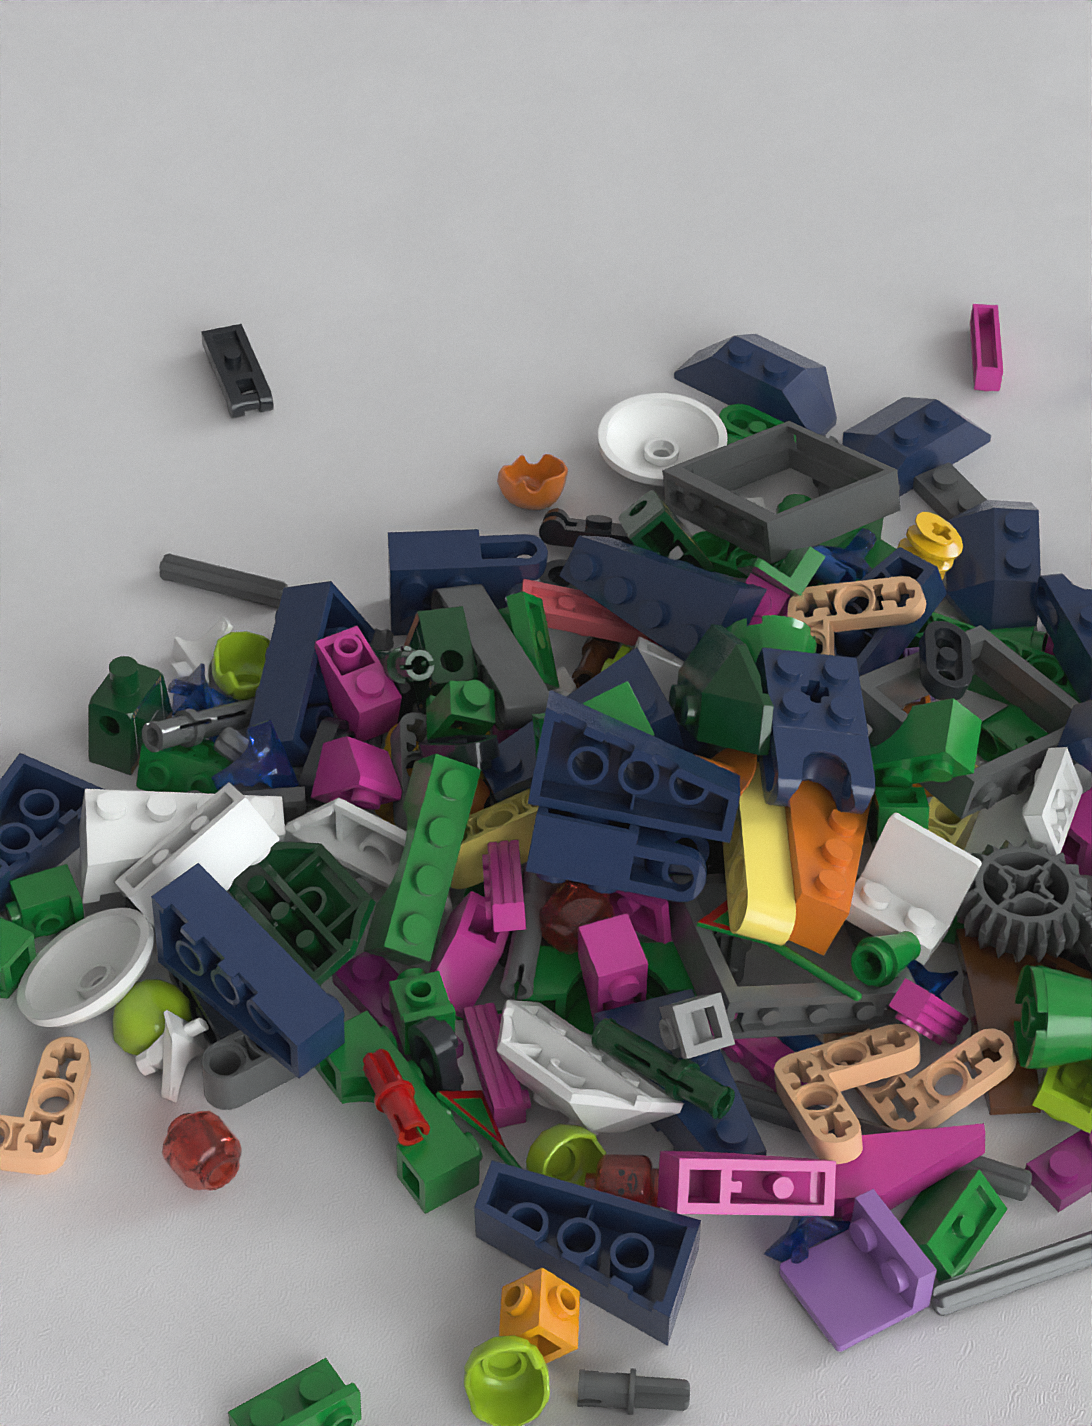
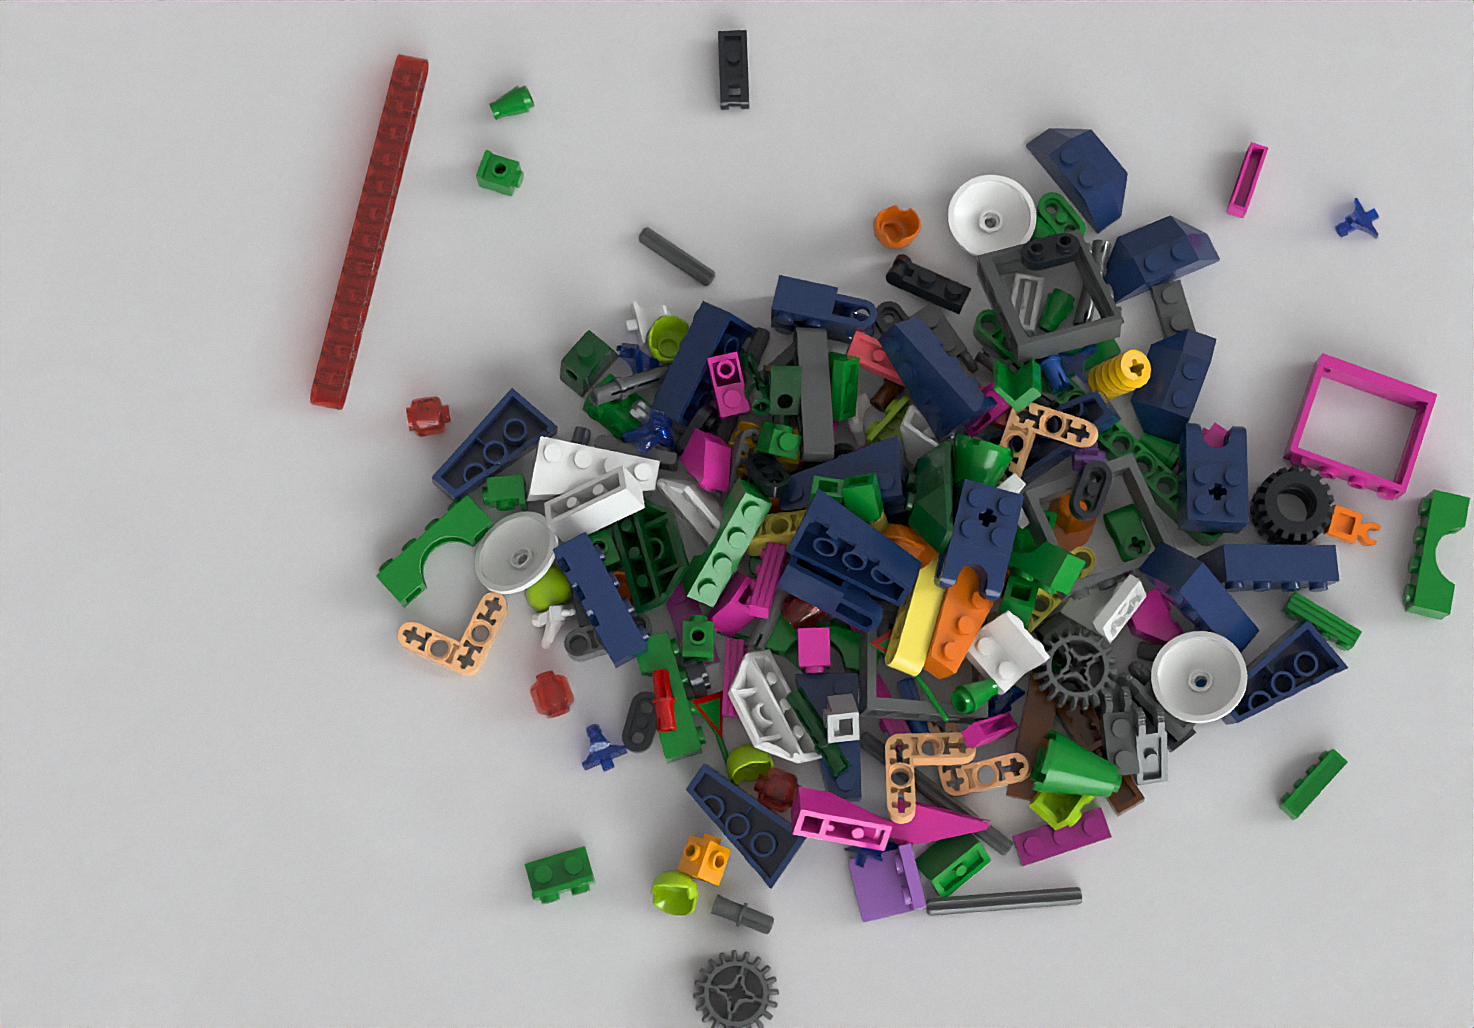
camera: 20 degrees right, 30 degrees up
(312, 1212) = (601, 750): none -> clear blue piece
(365, 1160) = (640, 723): none -> black plate
(656, 528) = (957, 319): dark green torso -> none
(762, 441) = (1053, 251): none -> black plate

